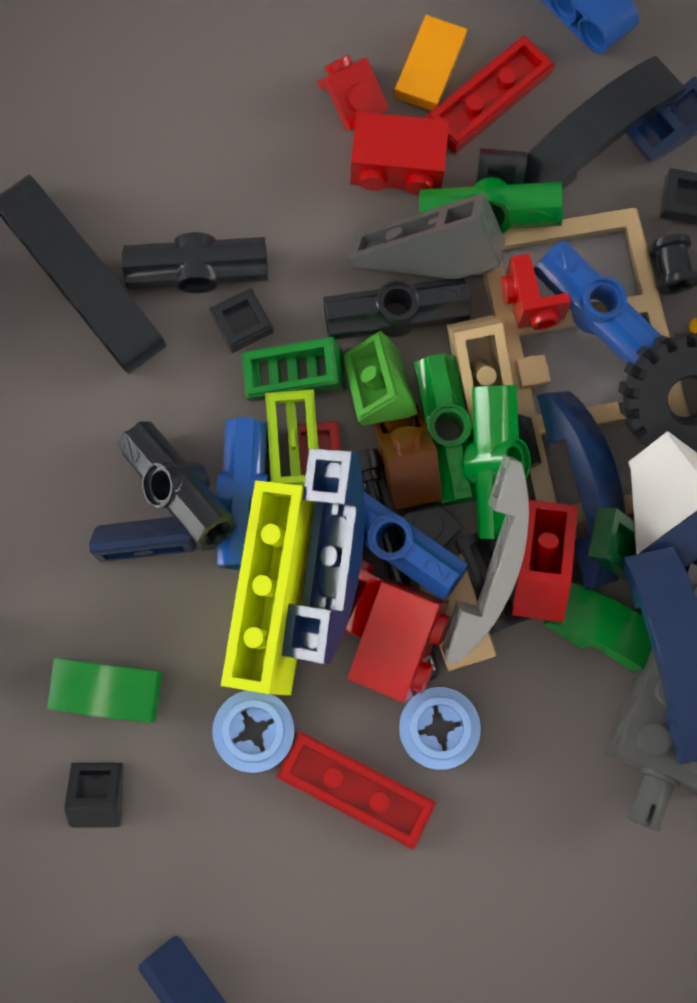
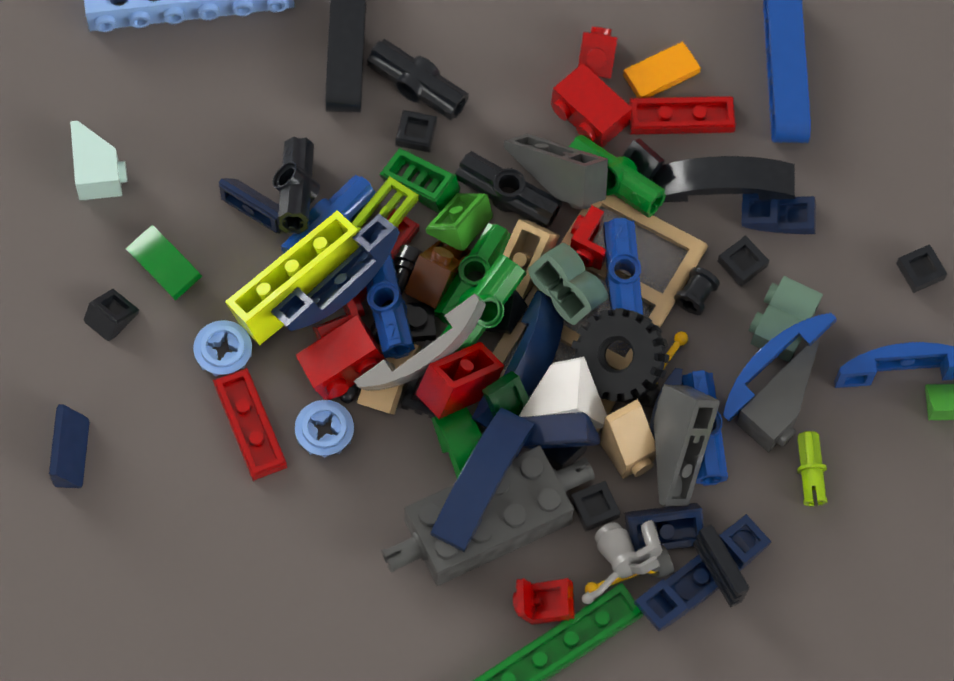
camera: 40 degrees right, 10 degrees down
(566, 362) = (571, 288): none -> sand green brick

